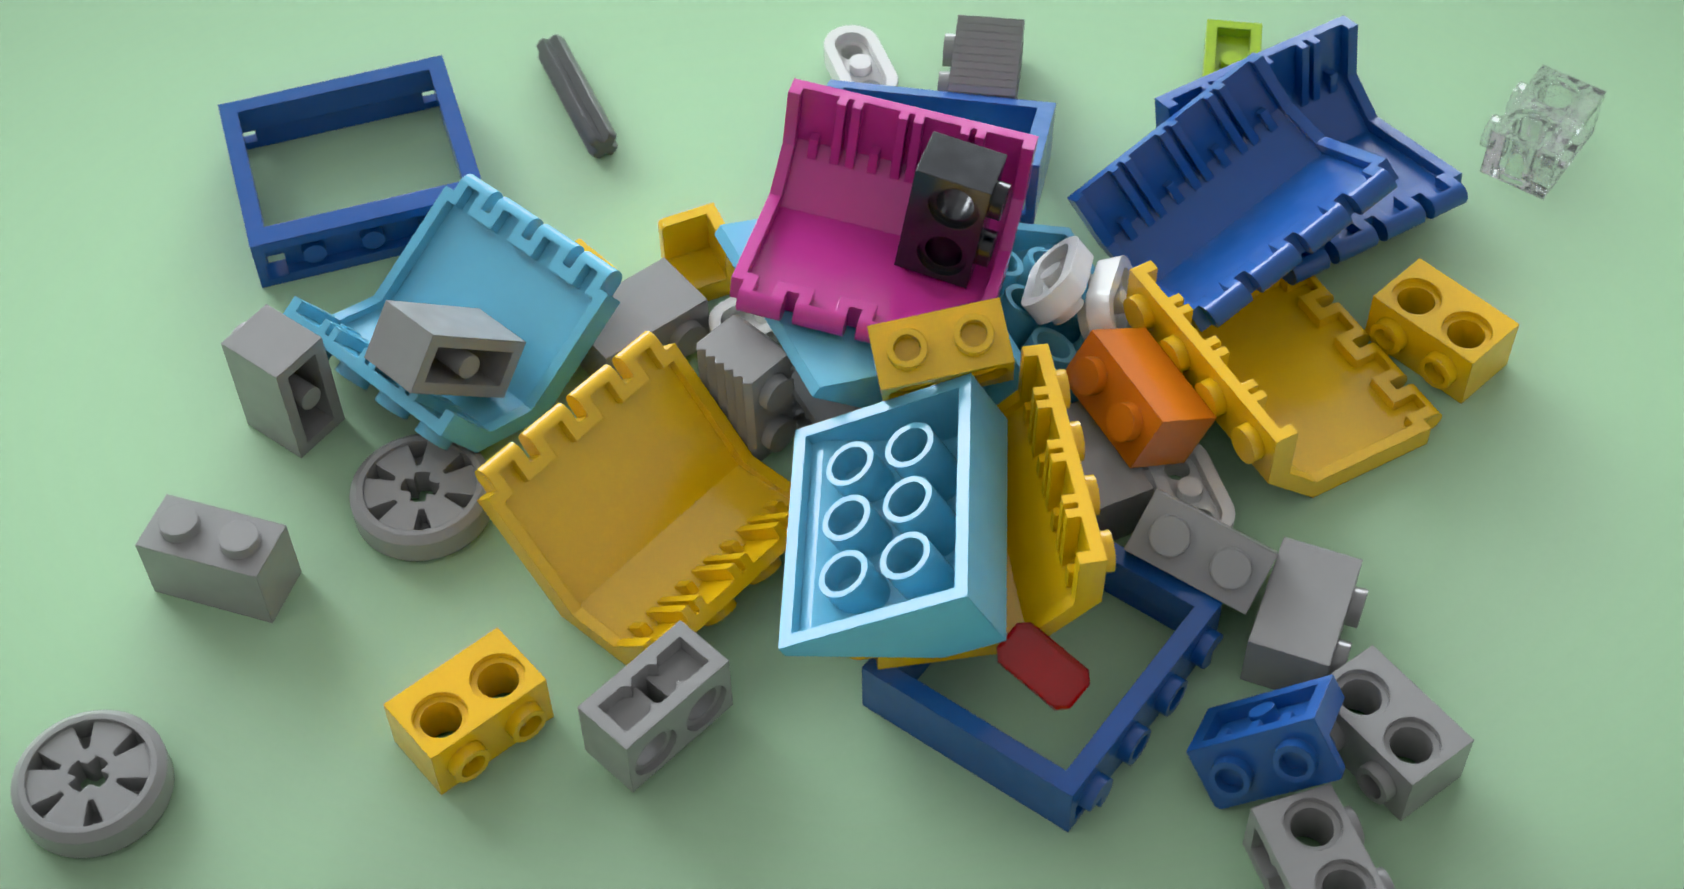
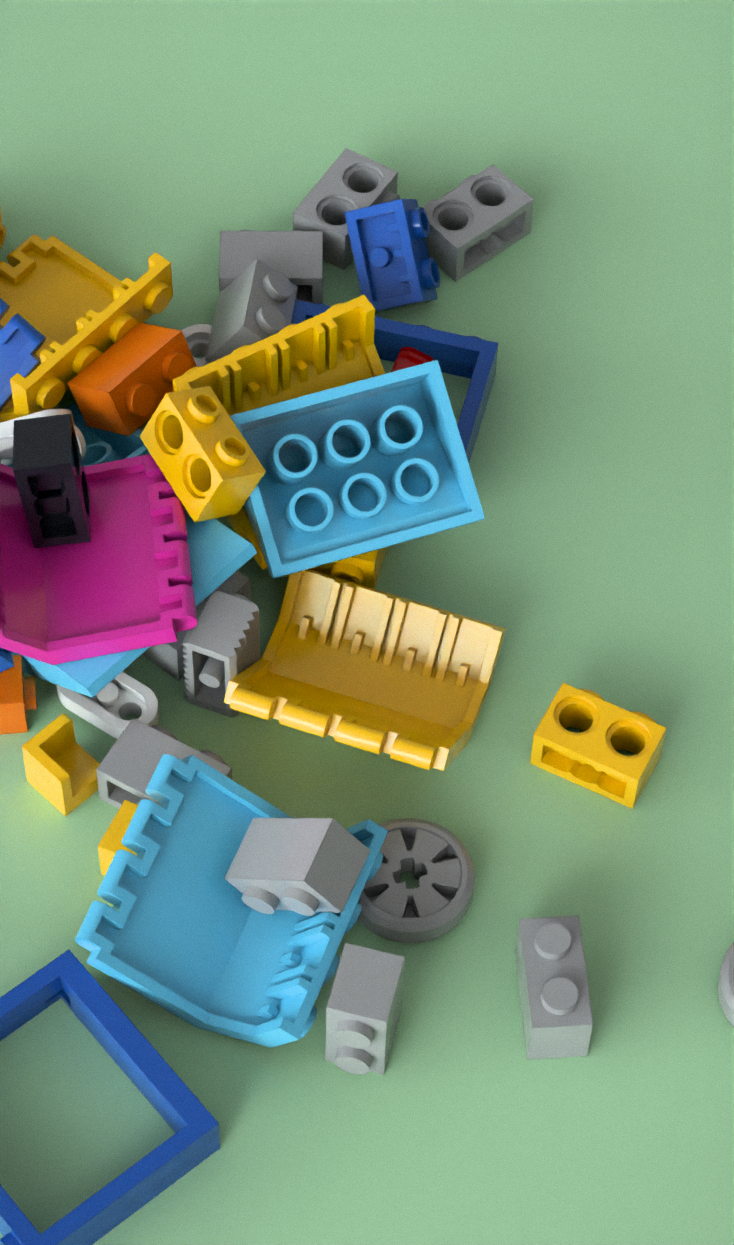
camera: 115 degrees left, 5 degrees up
(656, 705) = (544, 611): light grey brick -> none

